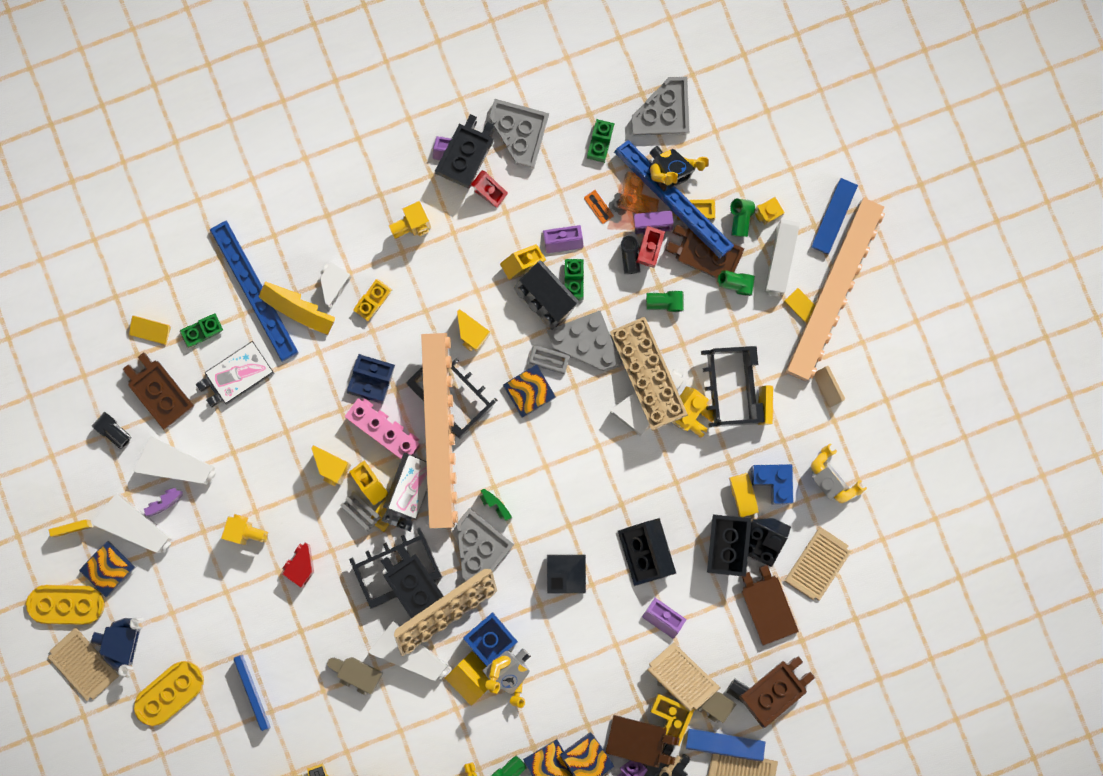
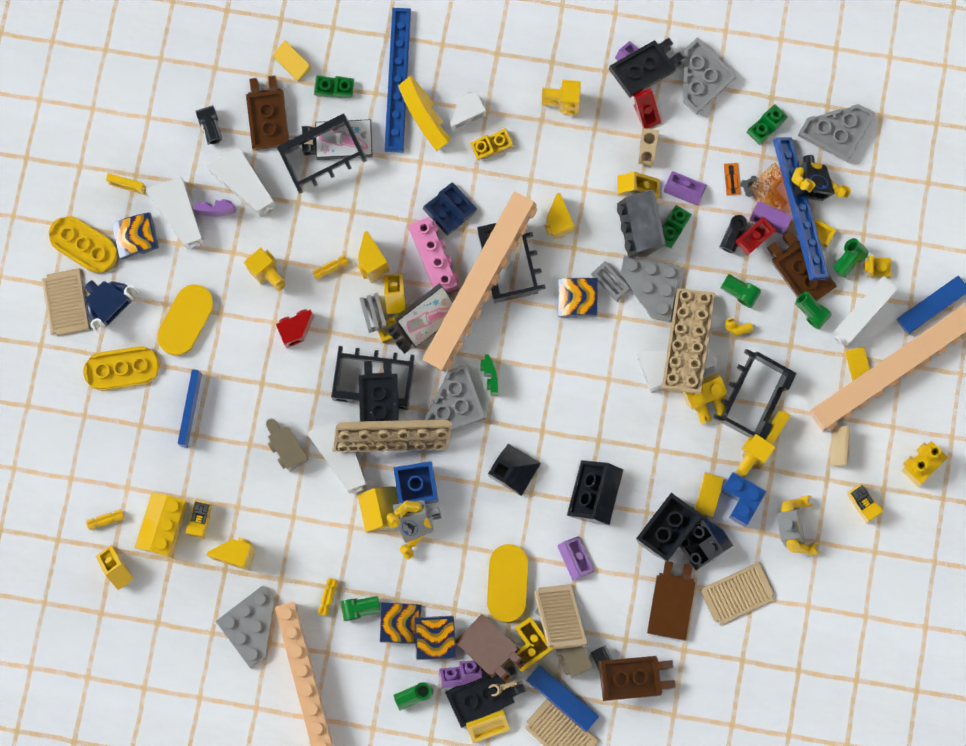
camera: 40 degrees right, 5 degrees down
(198, 616) = (185, 320): none -> yellow tile
(200, 401) = (294, 144): none -> black hinge
(298, 493) = (330, 267): none -> yellow axle
(510, 221) = (648, 146): none -> tan leg
(619, 675) = (507, 583): none -> yellow tile
(681, 337) = (736, 329): none -> yellow arm
(762, 435) = (755, 453): none -> yellow brick
(878, 423) = (864, 503): none -> leg
(907, 359) = (924, 463): none -> yellow brick

